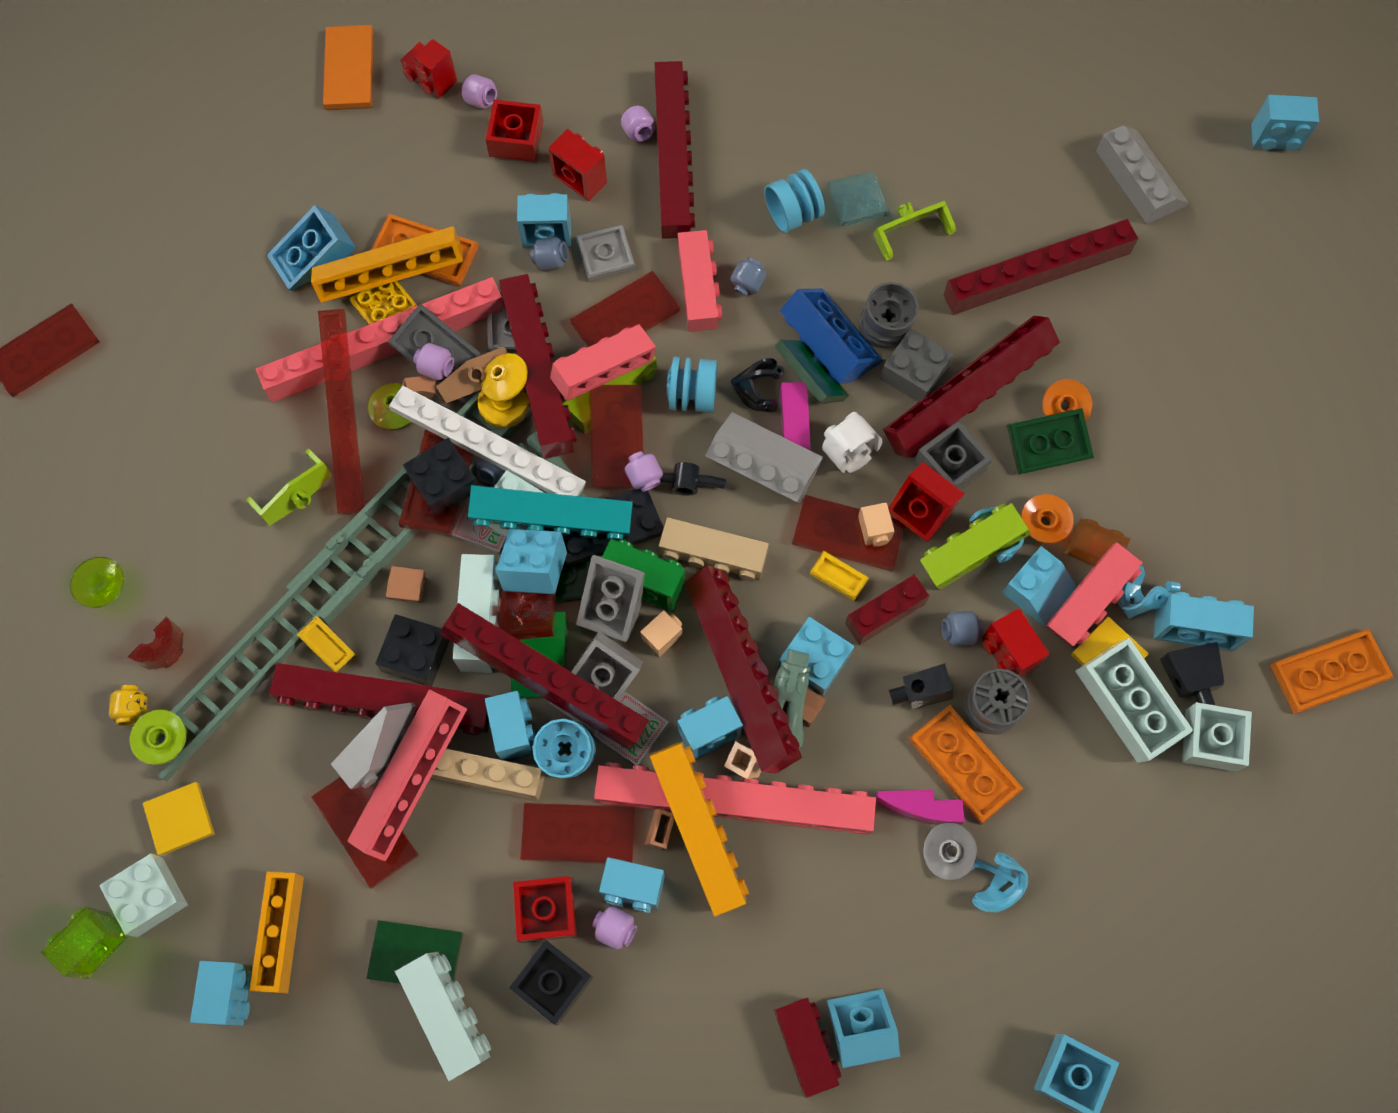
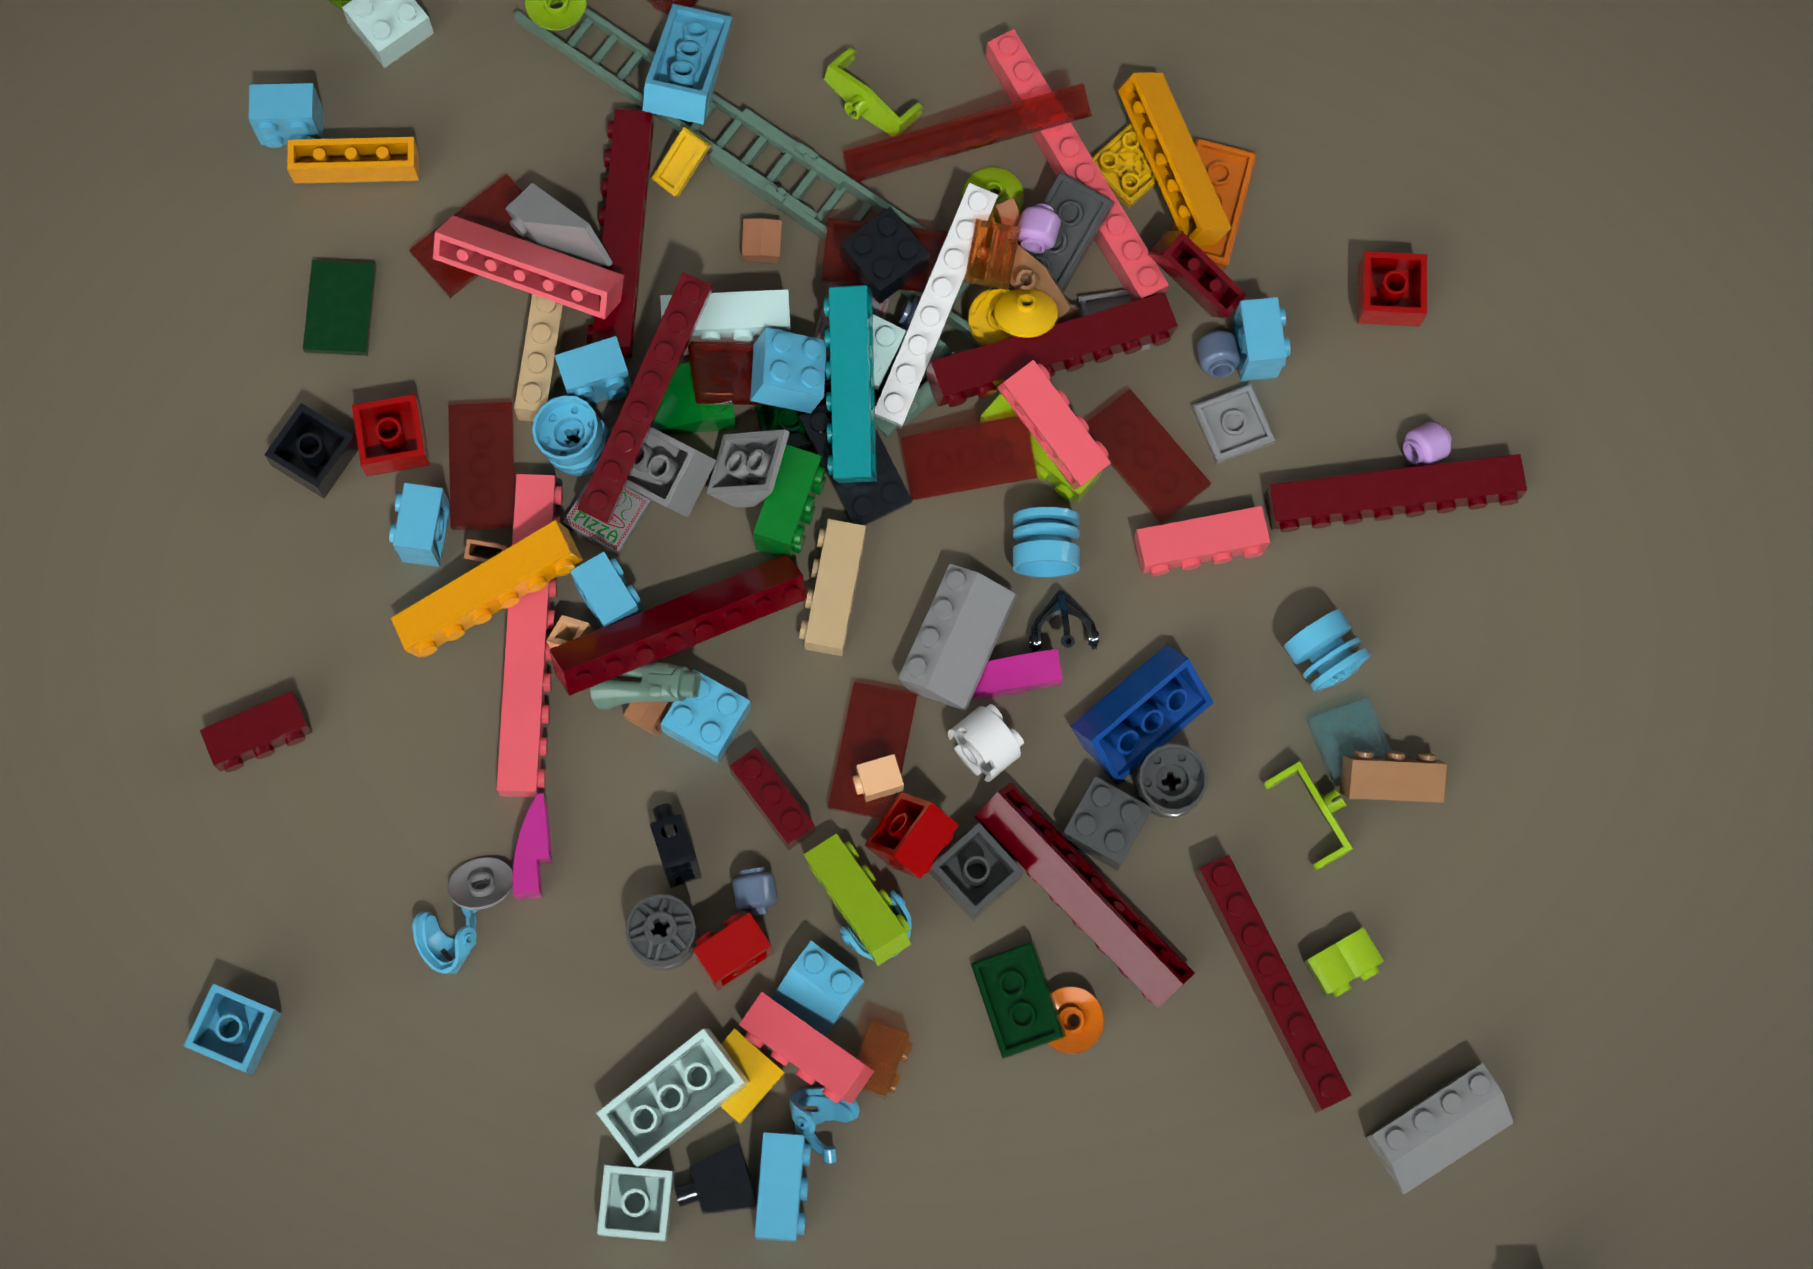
camera: 80 degrees right, 5 degrees up
(178, 818) = (473, 40): yellow tile -> none
(239, 628) = (686, 64): none -> medium azure slope
(310, 243) = (1195, 68): dark azure slope -> none
(348, 67) = (1470, 74): orange tile -> none
(412, 650) = (678, 249): black brick -> none
(430, 68) = (1473, 171): red brick -> none
(443, 1014) = (271, 340): light aqua brick -> none
(452, 395) = (992, 254): none -> clear orange brick
(479, 91) = (1450, 238): lavender head -> none
(486, 255) = (1197, 274): none -> dark red brick
(578, 164) = (1348, 373): red brick -> none
(614, 928) = (375, 513): lavender head -> none
(643, 471) = (922, 492): lavender head -> none
(662, 632) = (723, 536): light nougat brick -> none
(687, 478) = (924, 548): black piece -> none
(748, 276) = (1214, 603): sand blue head -> none
(811, 371) = (1080, 686): dark green tile -> none
(839, 576) = (815, 742): yellow tile -> none
(863, 1028) = (278, 792): medium azure slope -> none
(891, 170) = (1393, 777): none -> medium nougat brick
(965, 764) = (589, 903): orange tile -> none
(1024, 219) = (1344, 962): none -> lime brick
(1052, 509) = (911, 978): orange dish -> none

